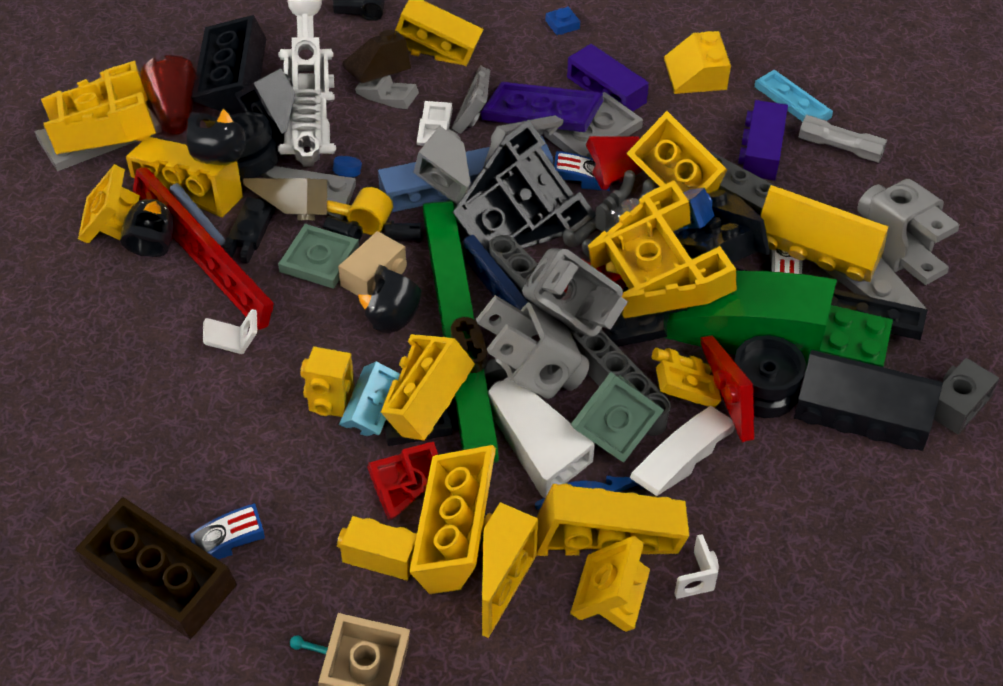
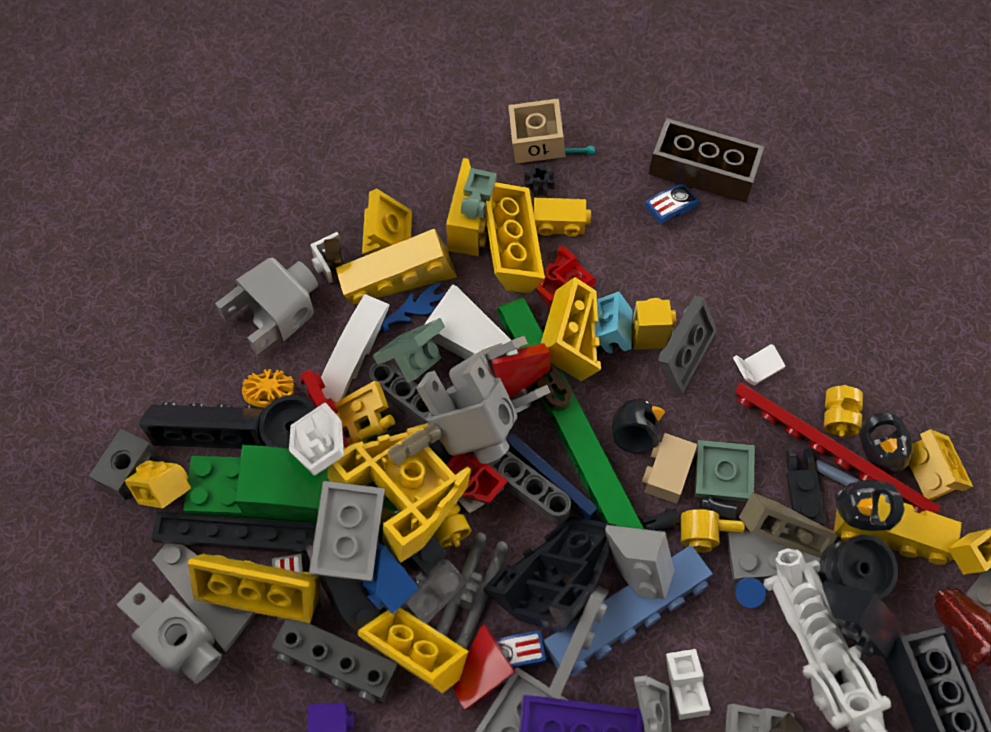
camera: 165 degrees right, 15 degrees up
(170, 270) = (843, 411): none -> yellow wheel
(290, 360) = (687, 344): none -> dark grey plate
(388, 593) = (539, 180): none -> black gear
(483, 333) = (522, 368): none -> red slope
(485, 536) = (477, 187): none -> sand green plate
(641, 267) = (414, 443): none -> dark tan axle
(689, 550) = (333, 253): none -> dark brown beam
(724, 215) = (347, 531): none -> light grey plate
(744, 305) = (317, 439): none -> white piece
(773, 519) = (277, 299): none -> light grey piece
(790, 431) = (266, 387): none -> light orange wheel
(921, 345) = (157, 483): none -> yellow brick

